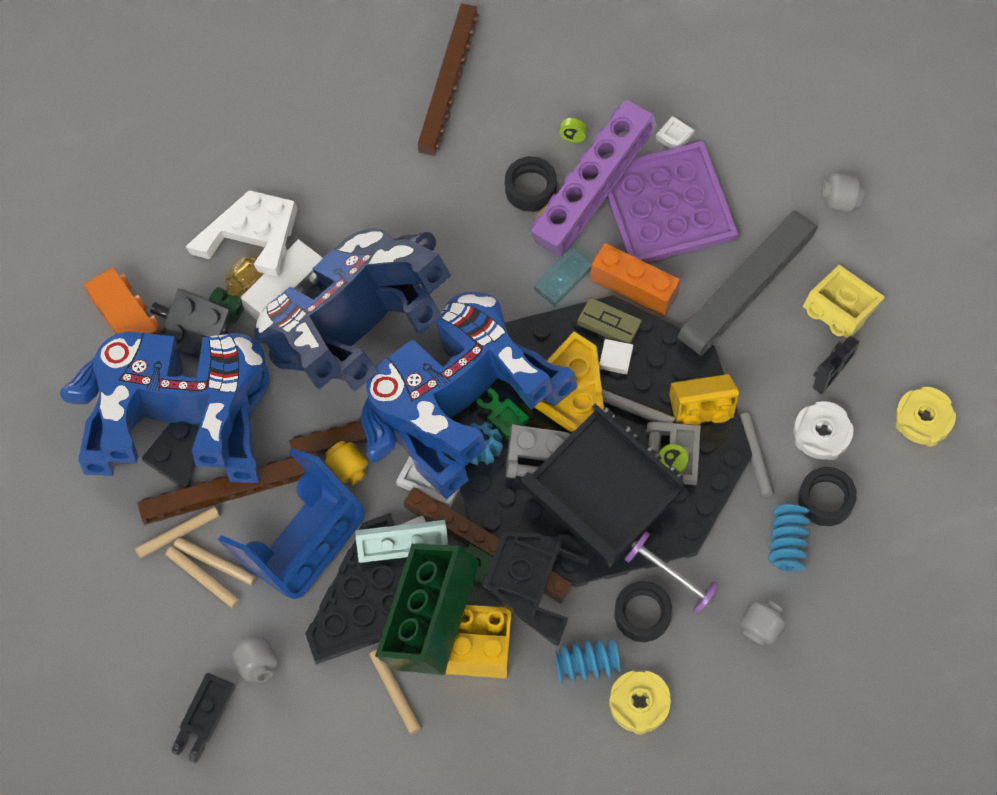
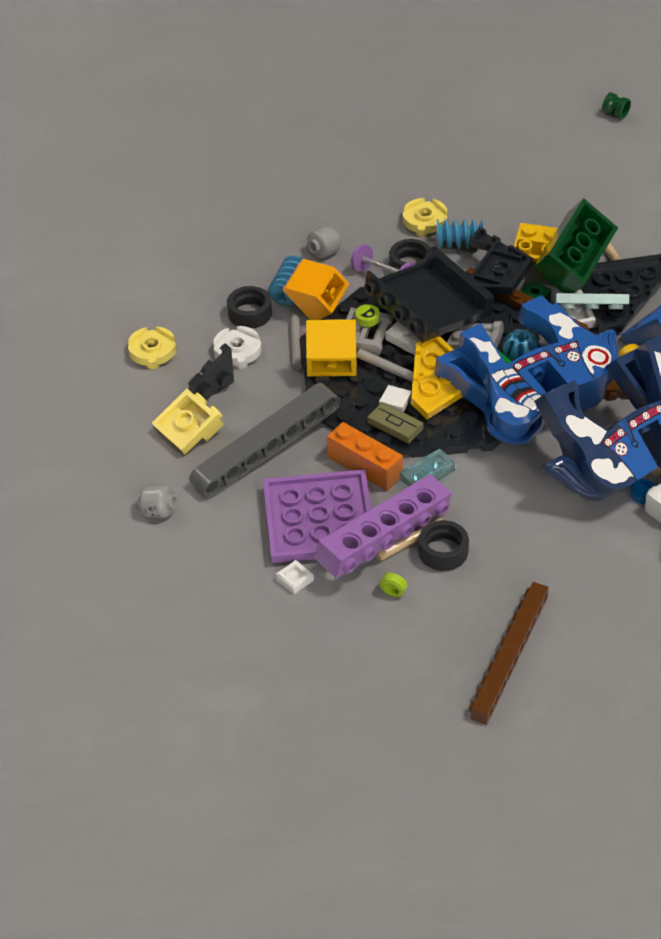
camera: 170 degrees left, 20 degrees down
(748, 514) = (316, 288): none -> light orange slope

